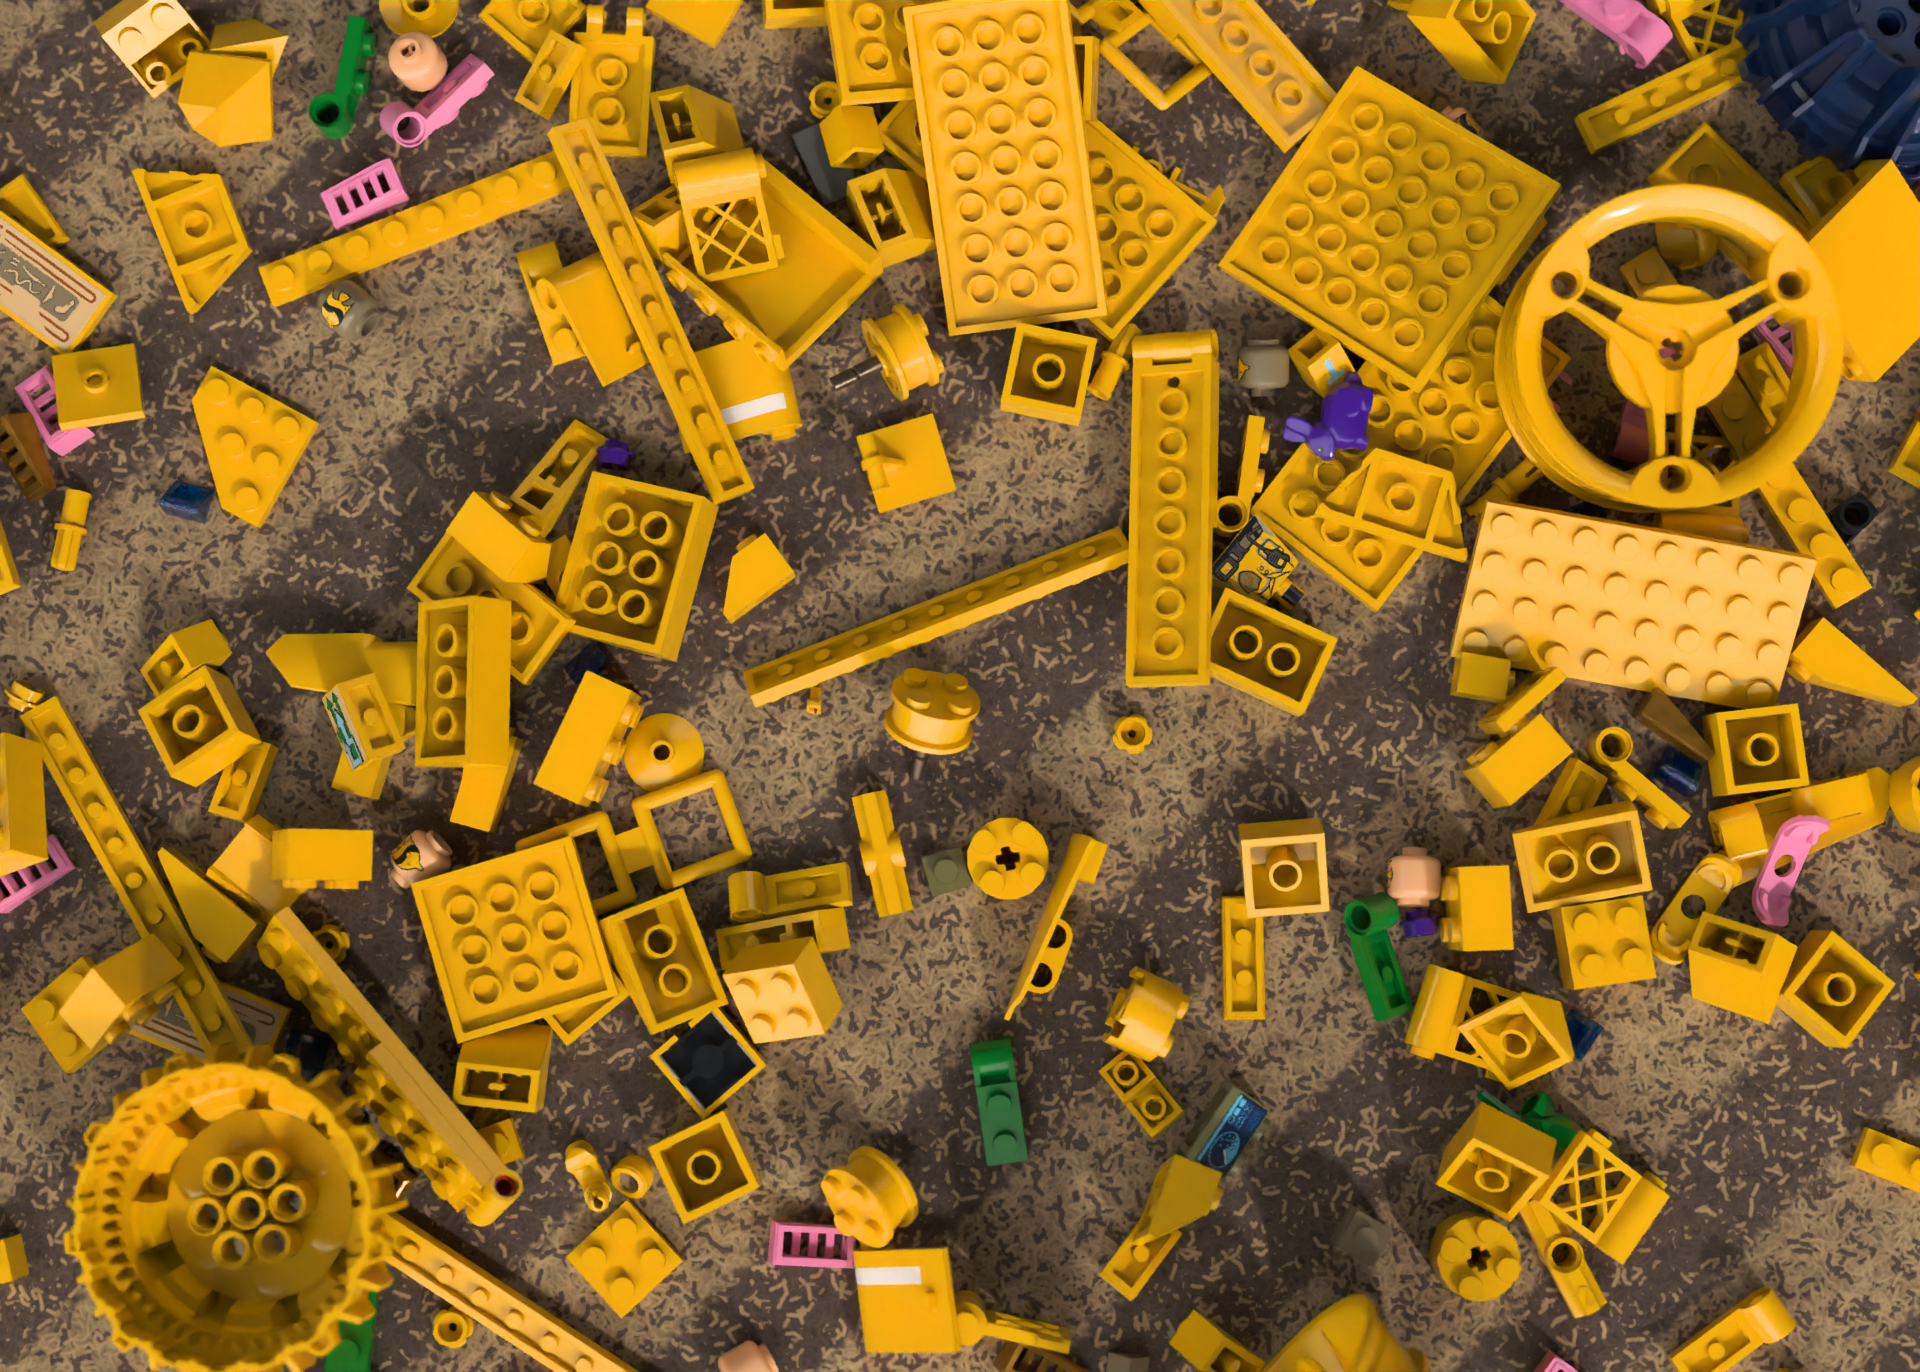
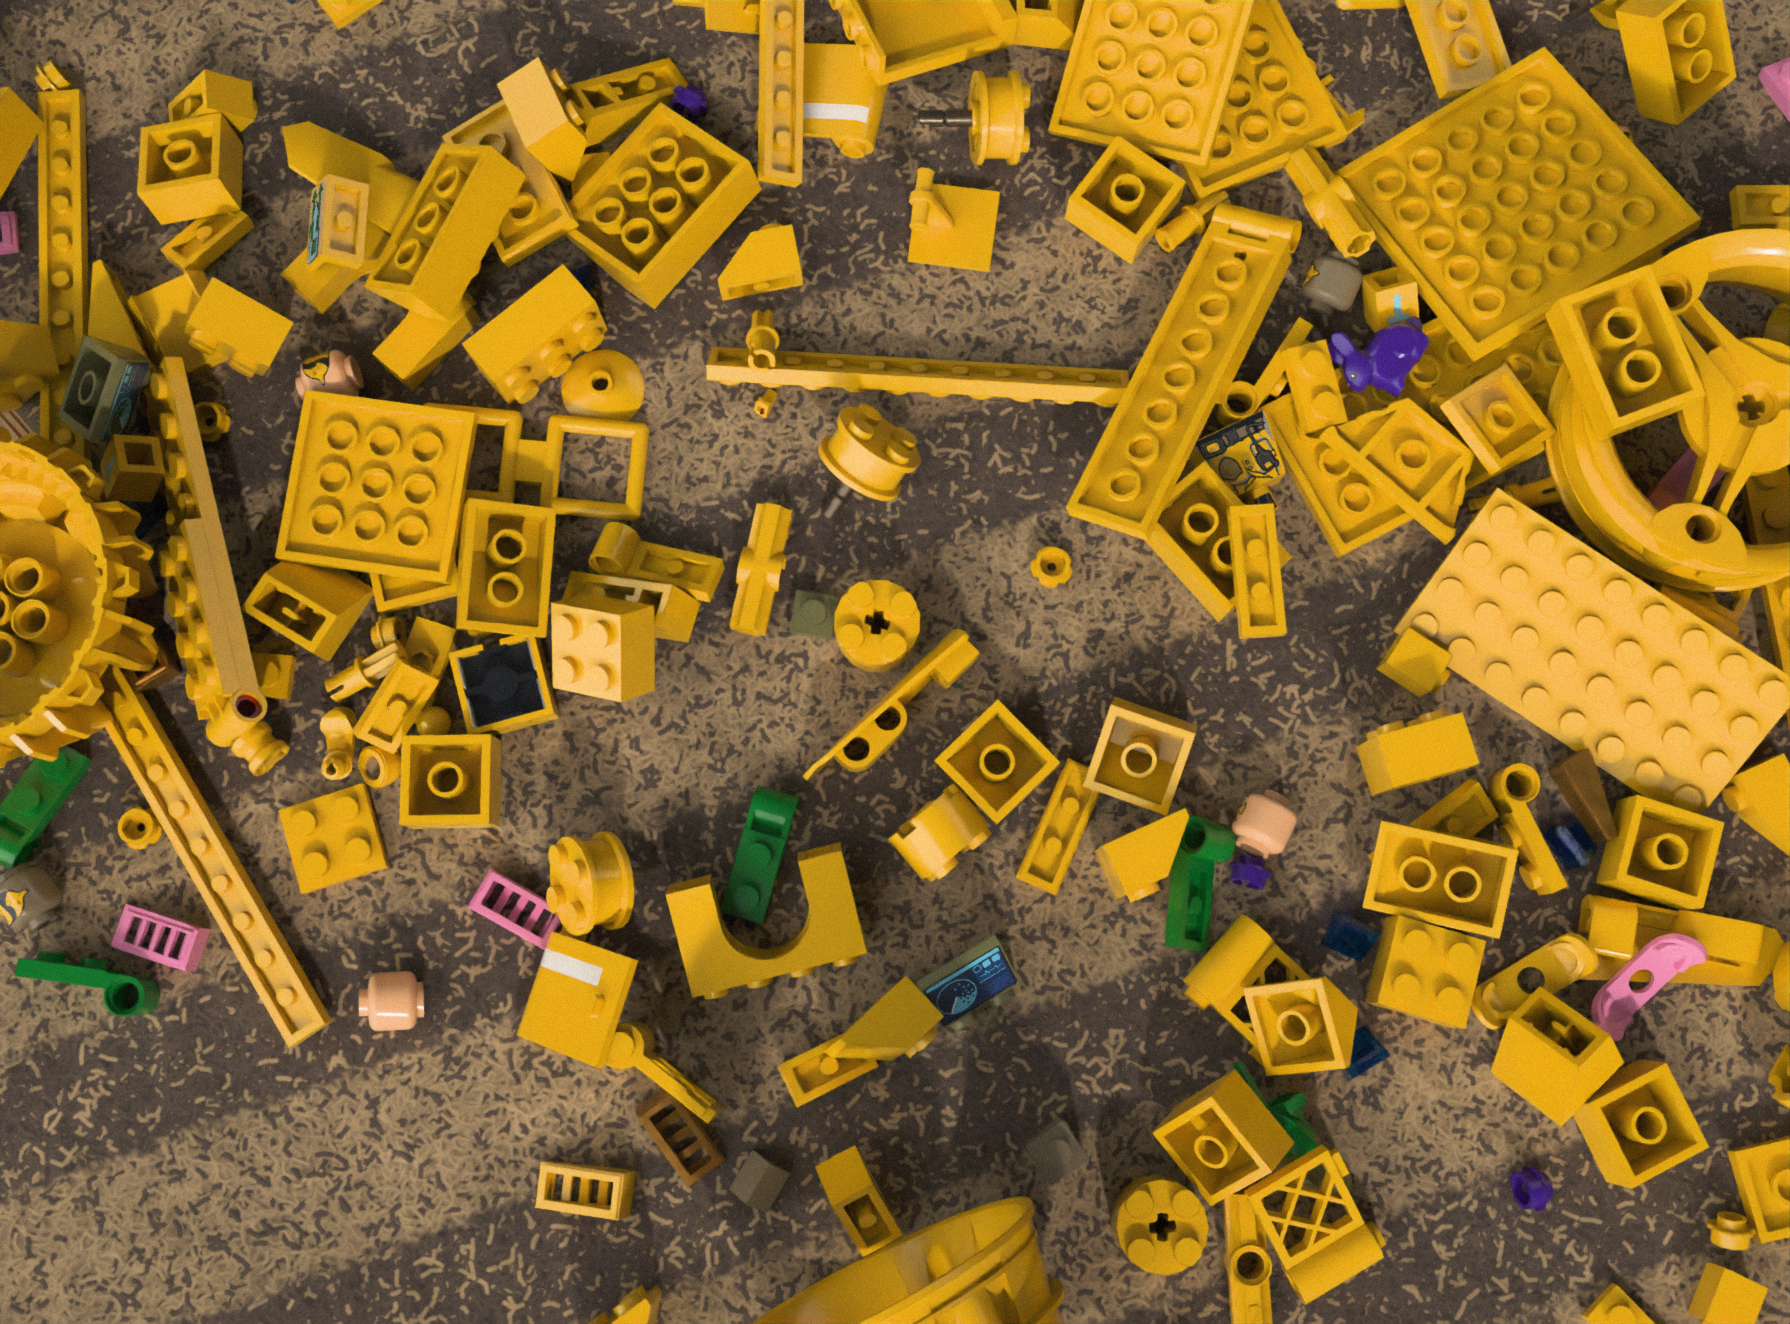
camera: 25 degrees right, 5 degrees down
(235, 969) = (104, 389): none -> olive slope
(295, 1024) = (132, 468): none -> yellow brick
(524, 1213) = (260, 748): none -> yellow wheel
(582, 1063) = (386, 630): none -> yellow plate
(583, 1102) = (365, 671): none -> yellow axle
(626, 1071) = (429, 648): none -> yellow plate
(627, 1121) = (399, 706): none -> yellow plate
(788, 650) = (762, 341): none -> yellow axle
(1011, 1209) = (720, 961): none -> yellow arch
(1142, 1093) = (903, 911): yellow slope -> none
(1165, 933) = (997, 762): none -> yellow slope
(1230, 296) = (1330, 202): none -> yellow piece
(1290, 473) = (1314, 386): none -> yellow plate
(1314, 668) = (1256, 571): none -> yellow plate
(1325, 955) = (1142, 857): none -> yellow slope
(1461, 432) = (1498, 419): none -> yellow plate
(1476, 908) = (1314, 878): yellow brick -> none
(1521, 700) = (1447, 697): yellow tile -> none
(1530, 938) = (1349, 935): none -> slope
(1548, 365) = (1624, 352): none -> yellow brick
(1772, 1079) = (1537, 1185): none -> dark purple plate

